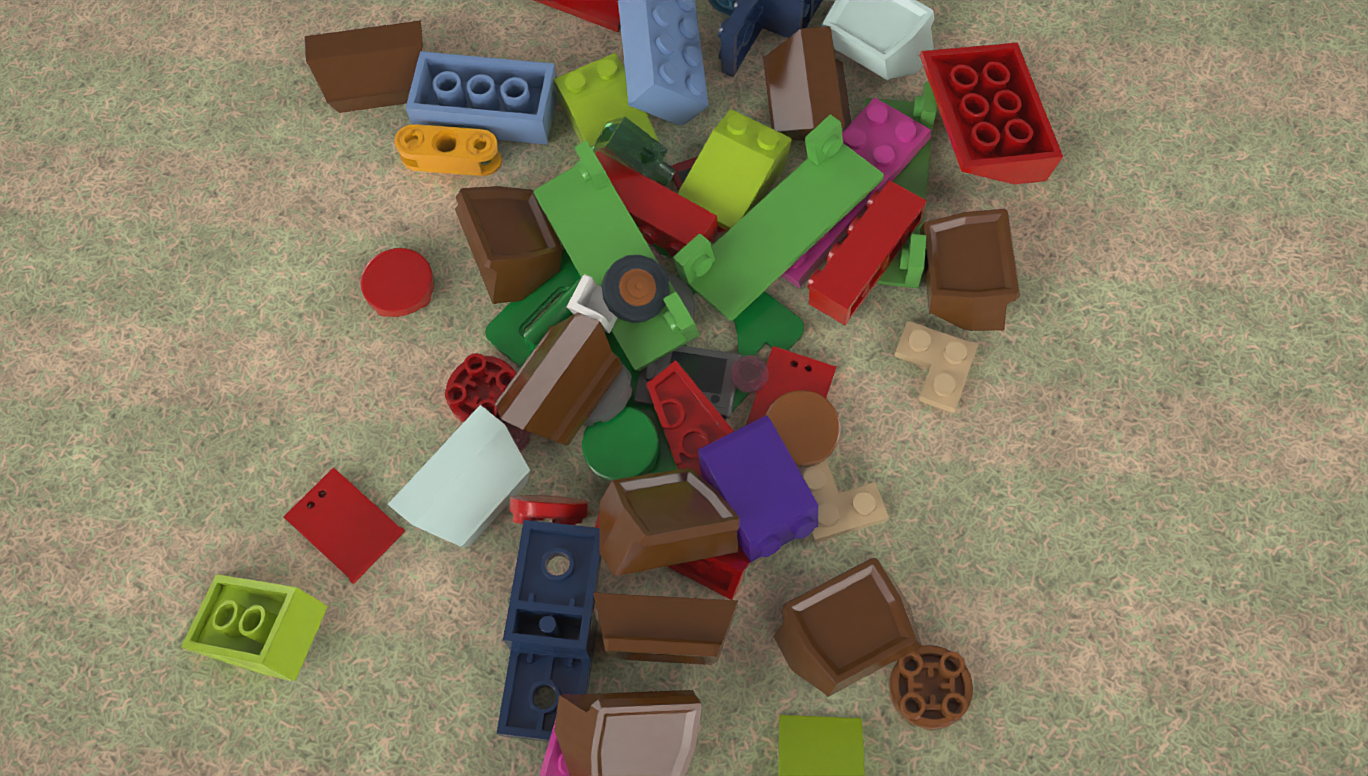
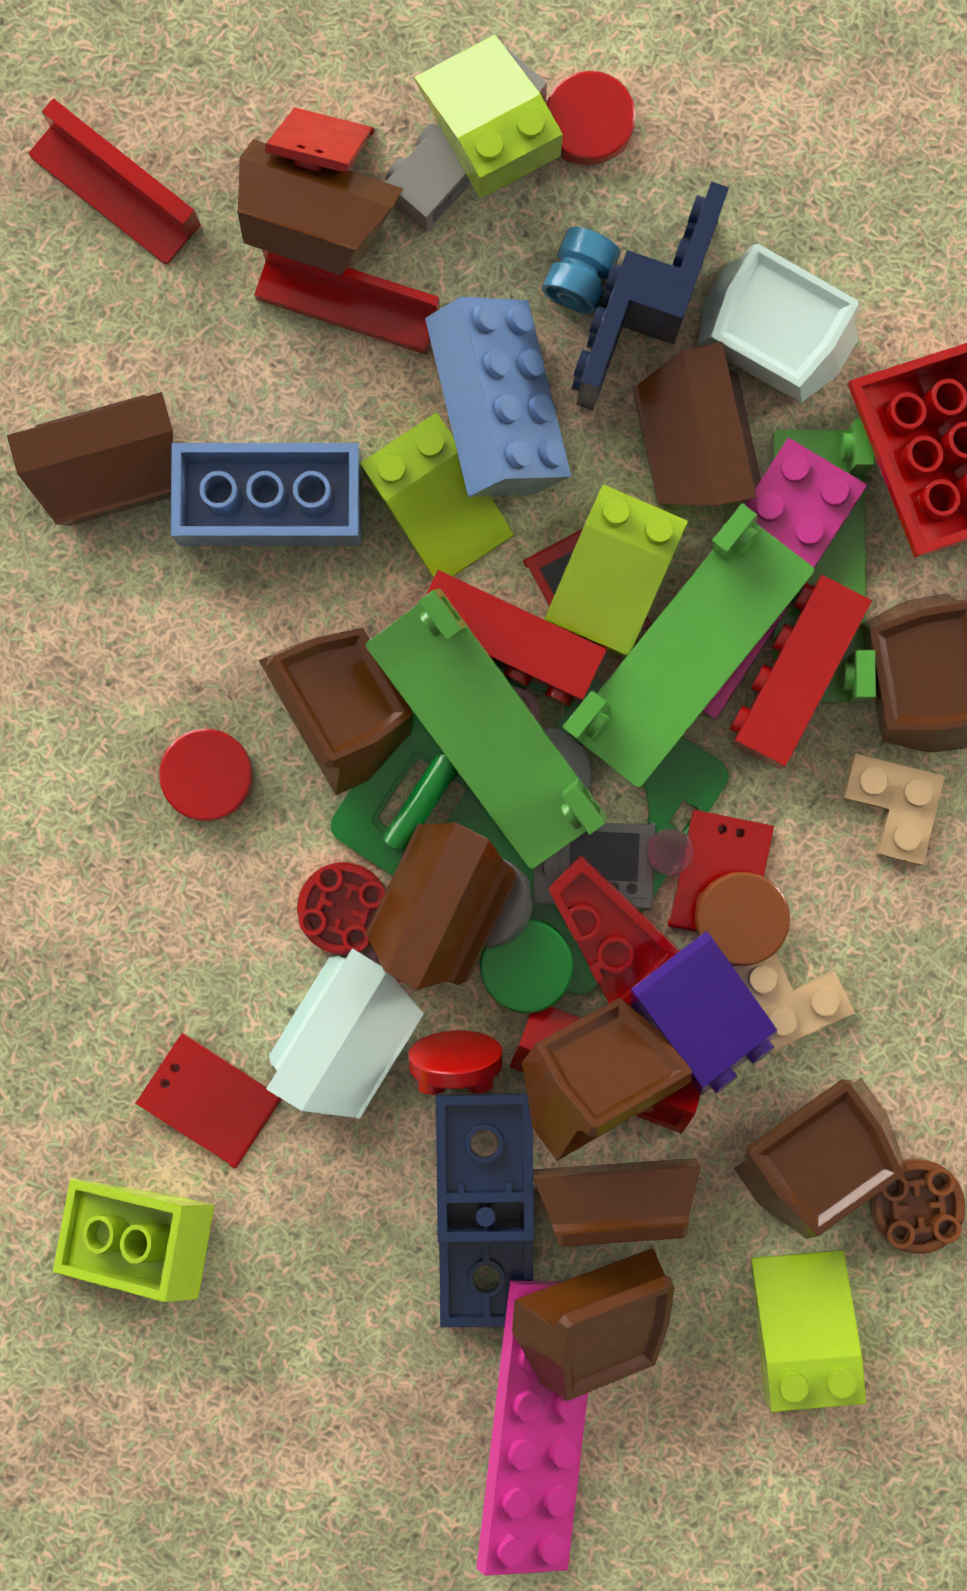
camera: 10 degrees left, 20 degrees up
(426, 149) = (211, 566): light orange piece -> none
(589, 302) = (475, 800): white panel -> none
(624, 143) = (479, 560): clear green torso -> none
(635, 288) = (522, 777): black wheel -> none

